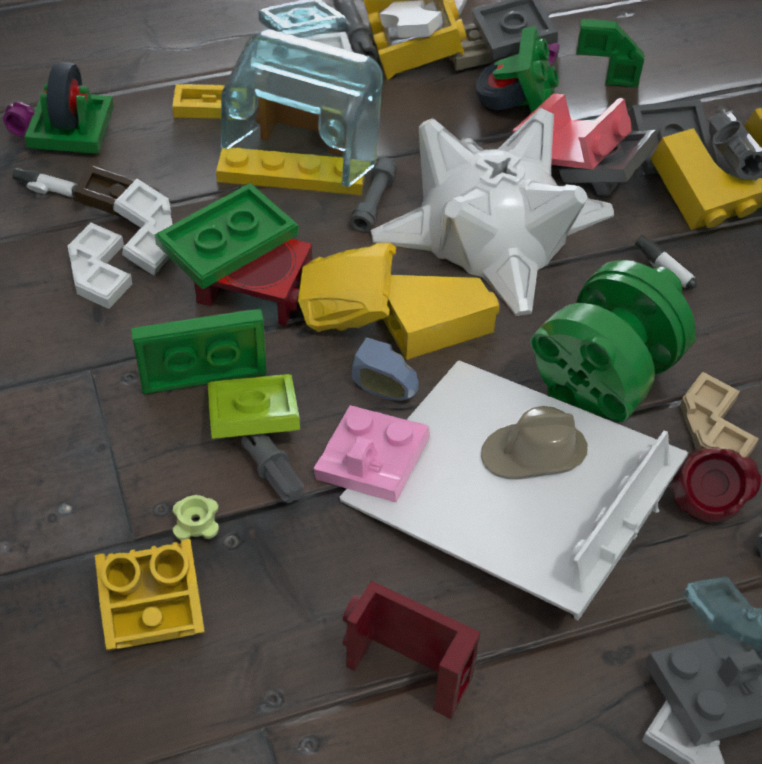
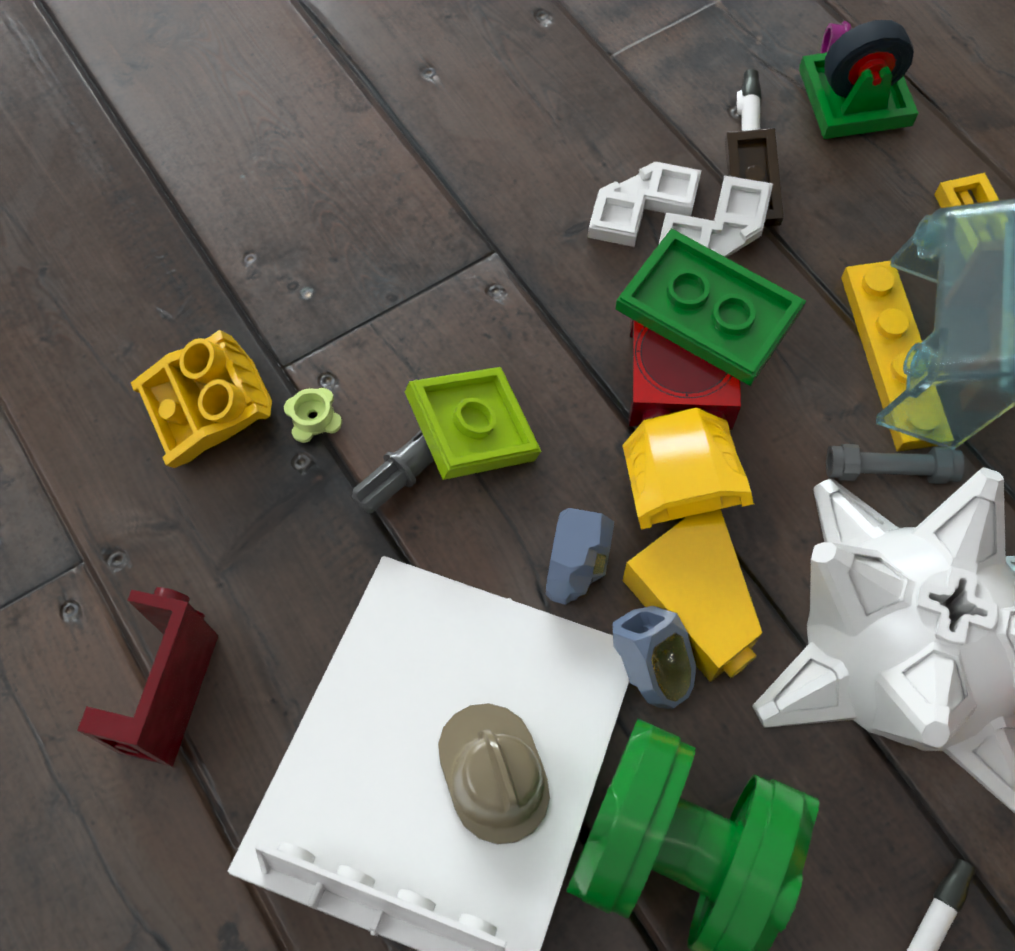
camera: 80 degrees right, 15 degrees up
(200, 350) = (517, 338): green tile -> none
(372, 453) = (448, 575): bright pink hinge -> none
(473, 342) = (656, 655): none -> sand blue rock

